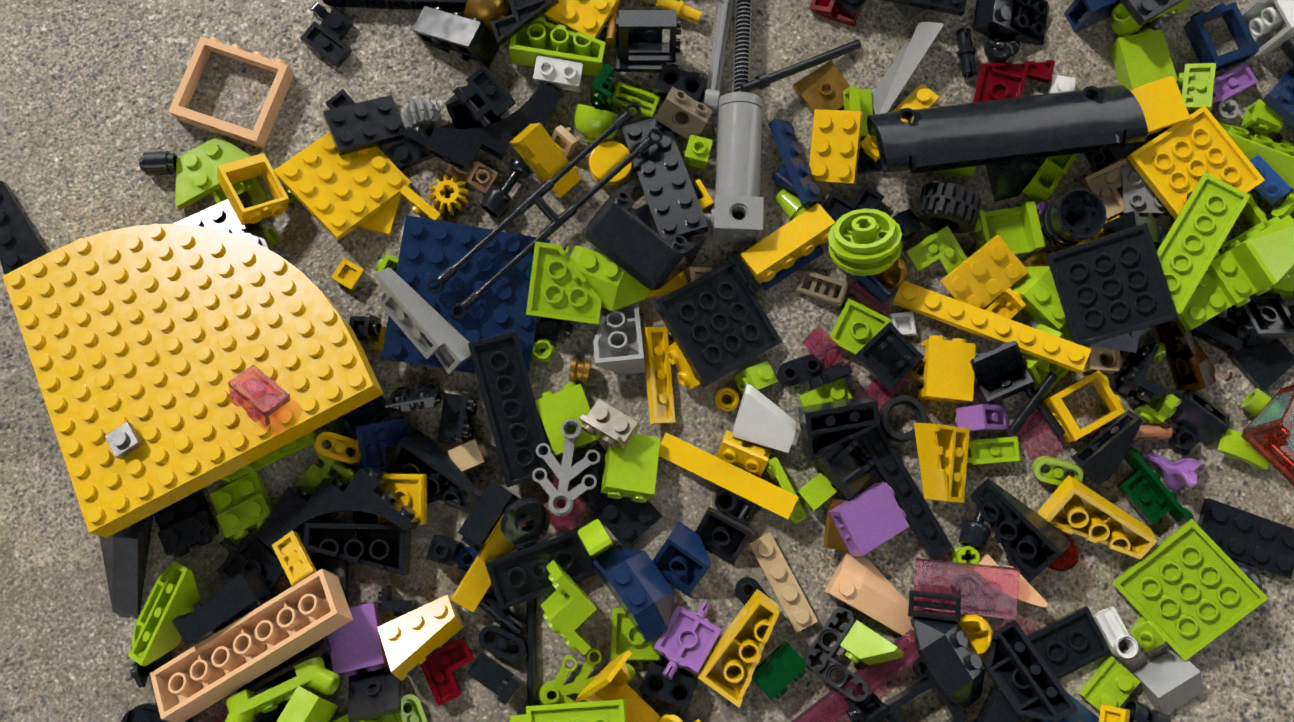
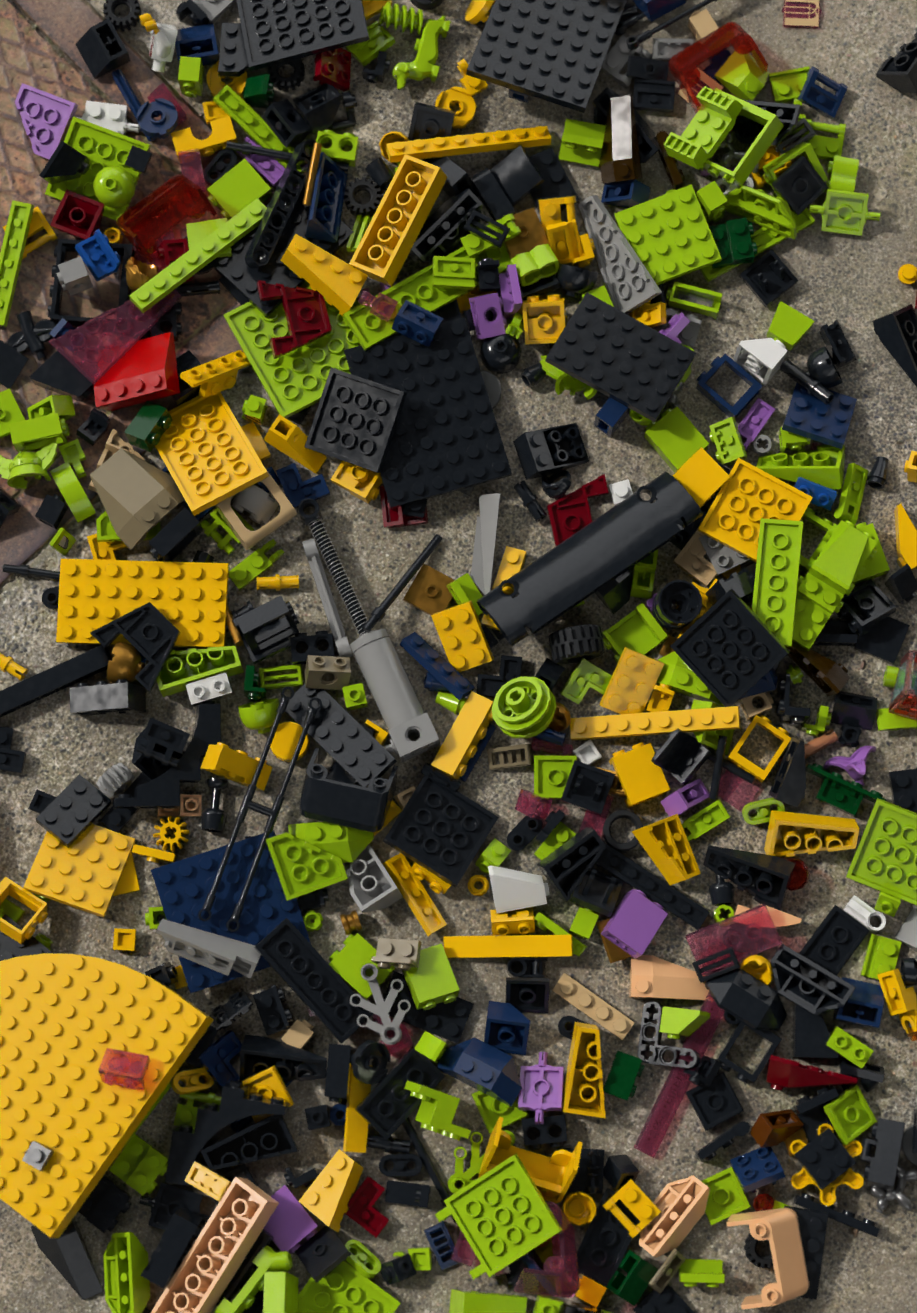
camera: 25 degrees left, 0 degrees up
(565, 140) = (241, 741): tan tile -> none

